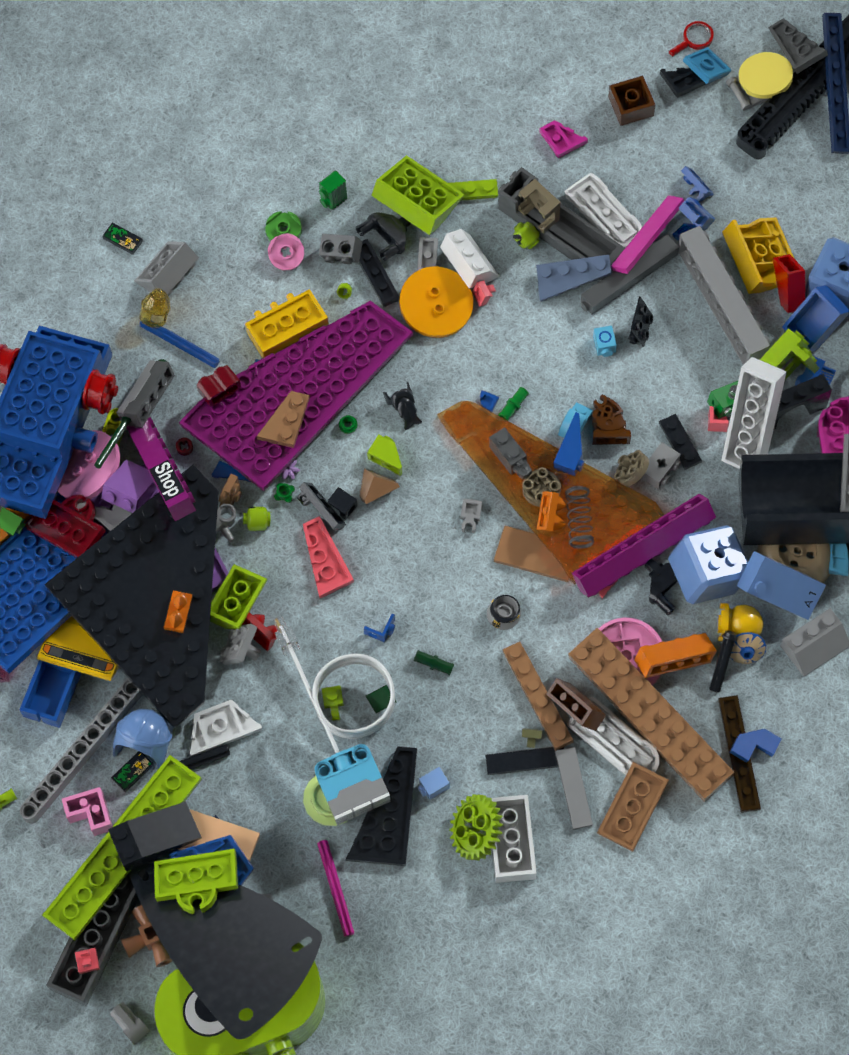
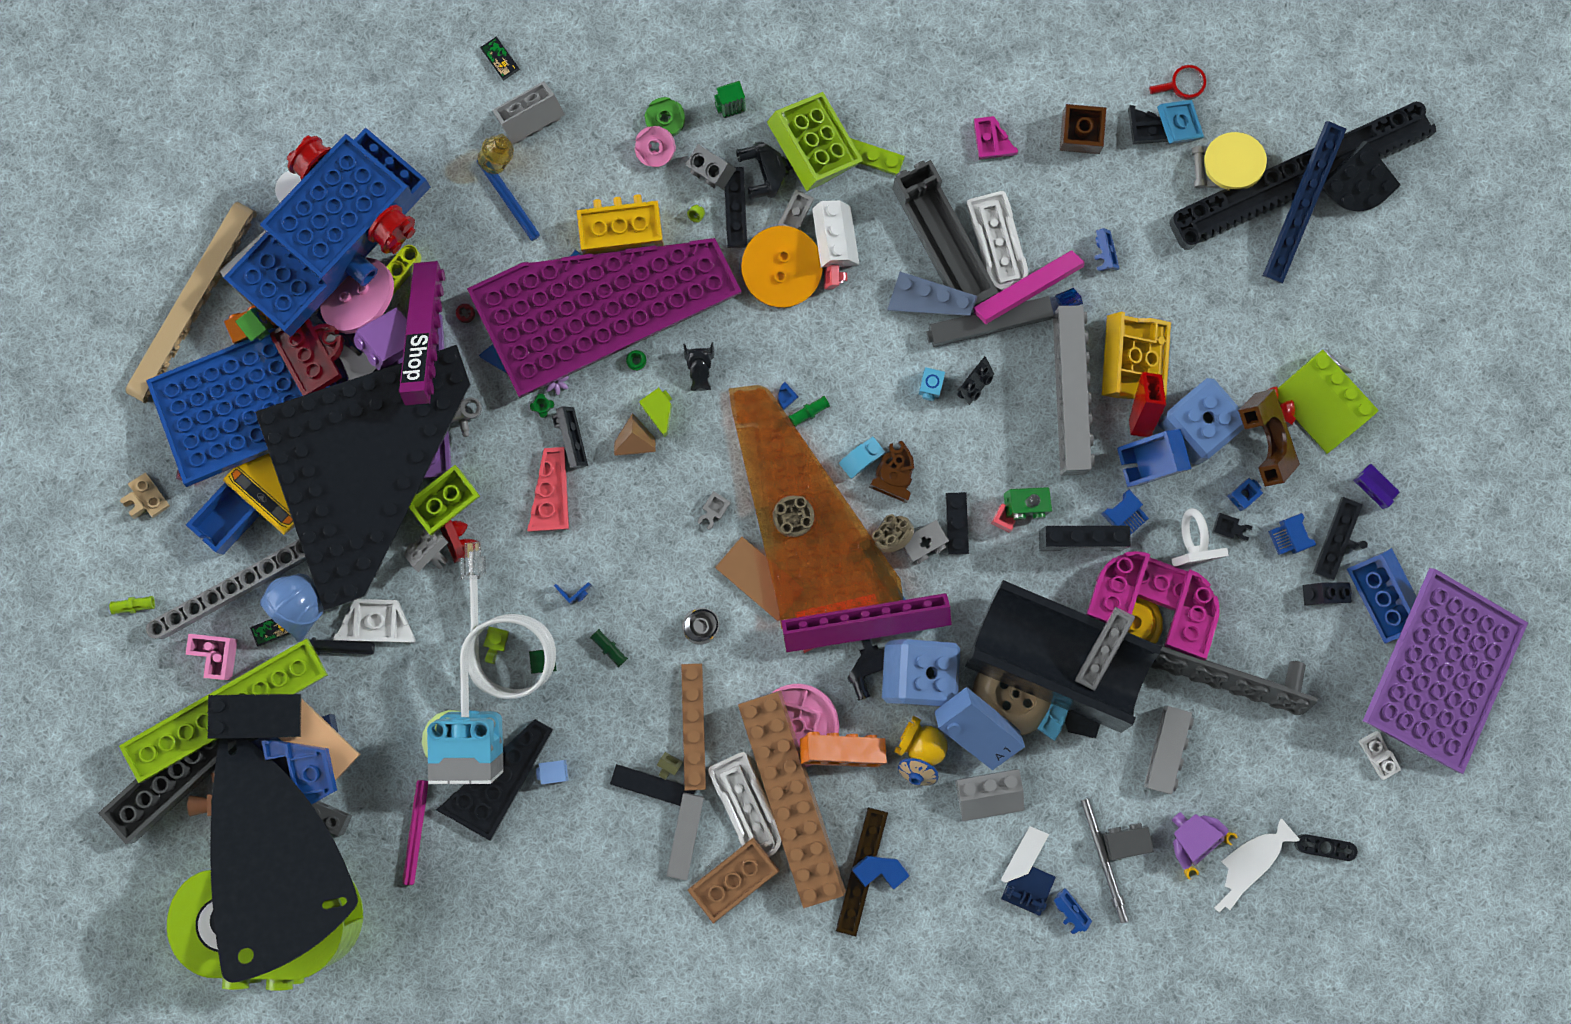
camera: 20 degrees right, 15 degrees up
(87, 960) = (144, 807): coral tile -> none
(131, 1025) = (165, 878): light grey piece -> none
(140, 401) = (437, 250): dark grey piece -> none
(178, 611) = (374, 495): orange tile -> none
(196, 878) = (272, 780): lime plate -> none
(218, 385) = (520, 267): dark red brick -> none
(231, 491) = (486, 385): medium nougat plate -> none
(257, 518) = (502, 422): lime head -> none
(286, 421) = (572, 334): medium nougat wing -> none
(343, 502) = (592, 443): black panel -> none
(468, 838) = (570, 838): lime gear -> none
(510, 453) = (778, 468): dark grey hinge -> none
(515, 852) = (601, 862): white brick -> none
(526, 235) = (905, 233): lime head -> none
(542, 200) = (938, 220): dark tan panel -> none
(547, 517) = (783, 554): orange tile -> none
(569, 456) = (839, 492): blue slope -> none
(576, 704) = (722, 758): reddish brown brick -> none
(577, 538) = (825, 540): dark grey piece -> none
(696, 213) = (1089, 285): blue piece -> none
(723, 659) = (902, 759): black axle -> none
(753, 411) = (1036, 541): white brick -> none
(790, 352) = (1100, 486): lime brick -> none
(796, 46) = (1283, 141): dark grey wing -> none

